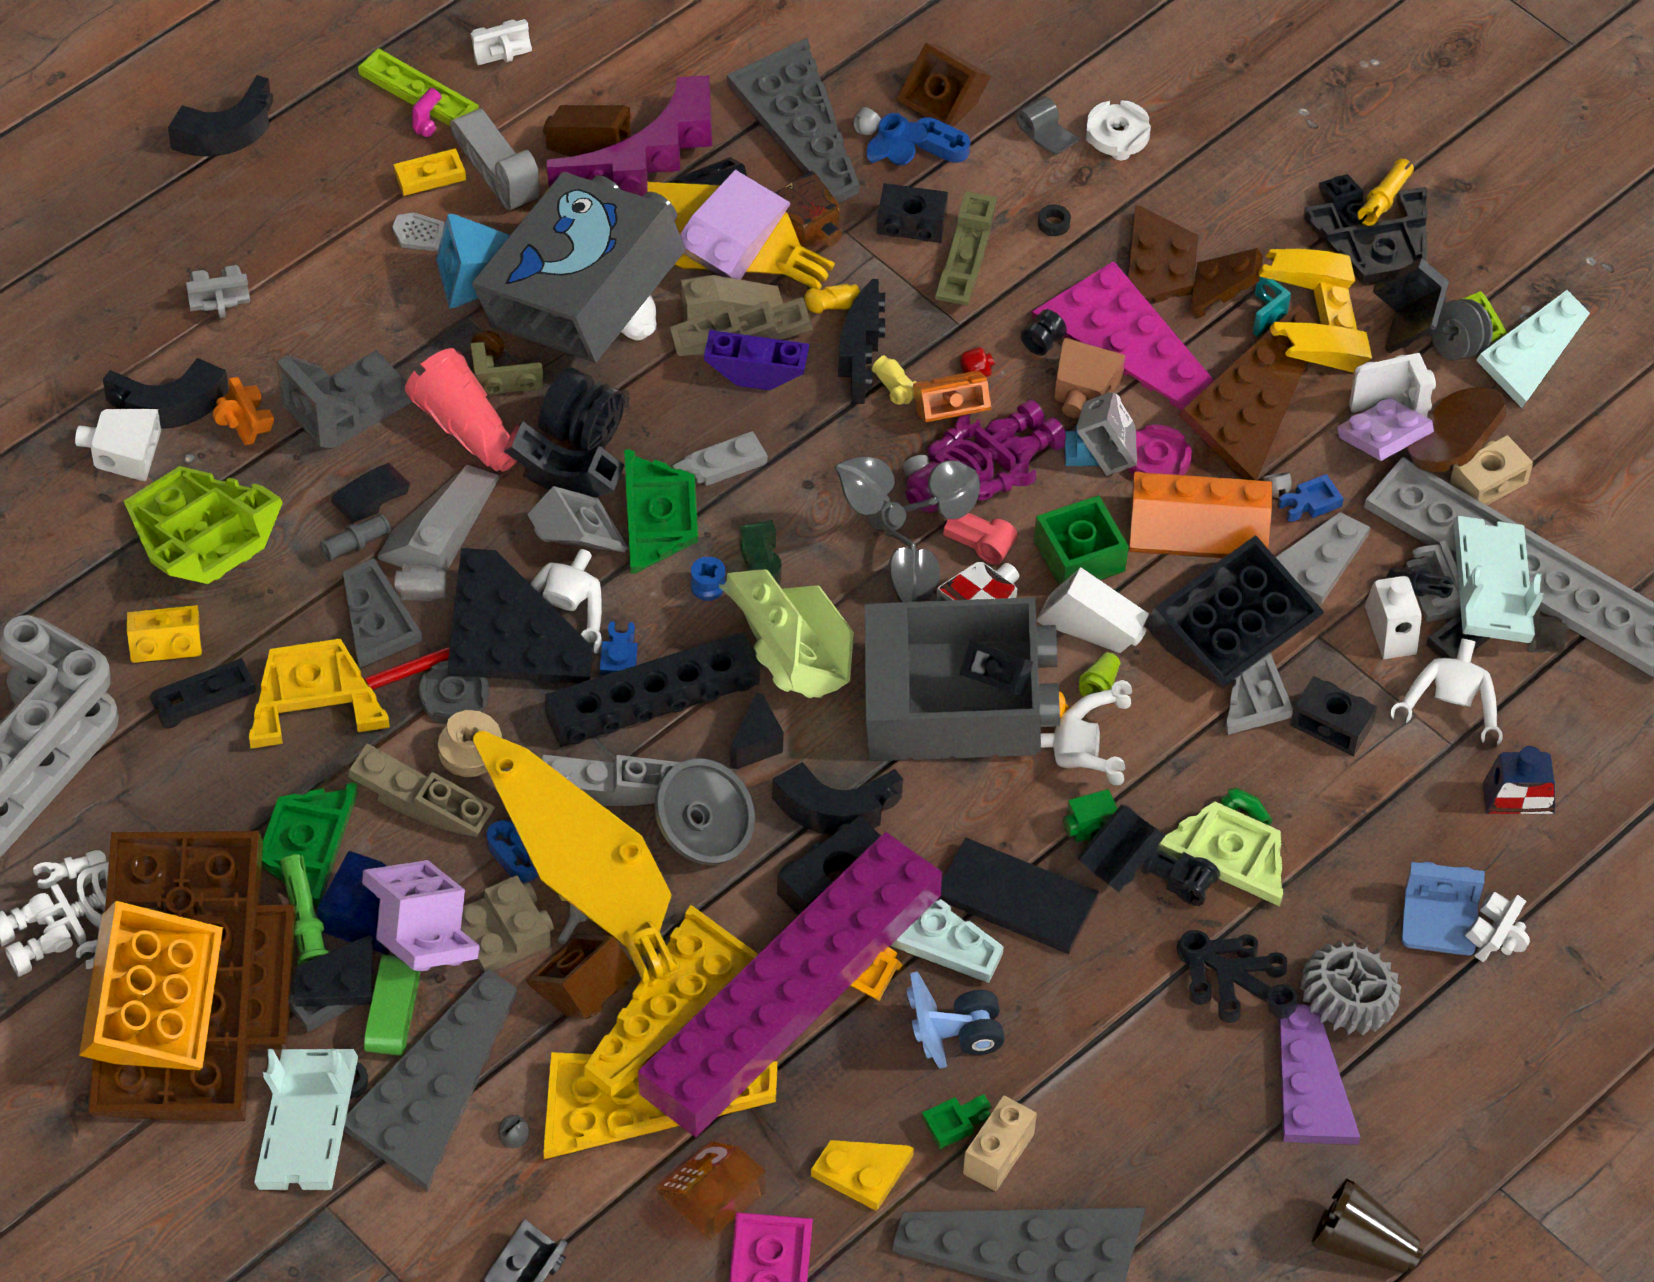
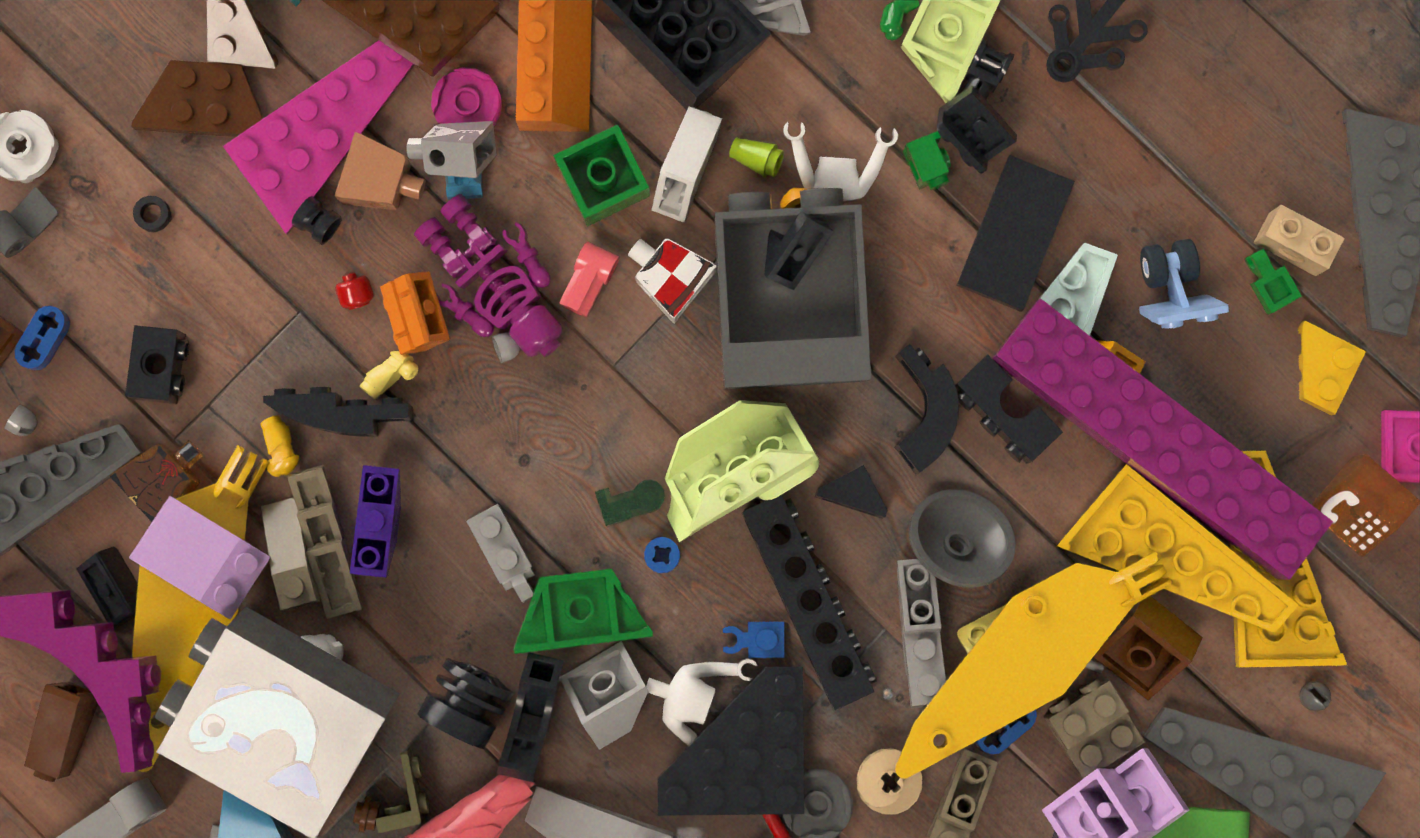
camera: 95 degrees left, 30 degrees up
(865, 488) = (574, 382): dark grey plant -> none
(896, 140) = (53, 386): blue plate -> none
(967, 249) = (207, 305): olive slope -> none

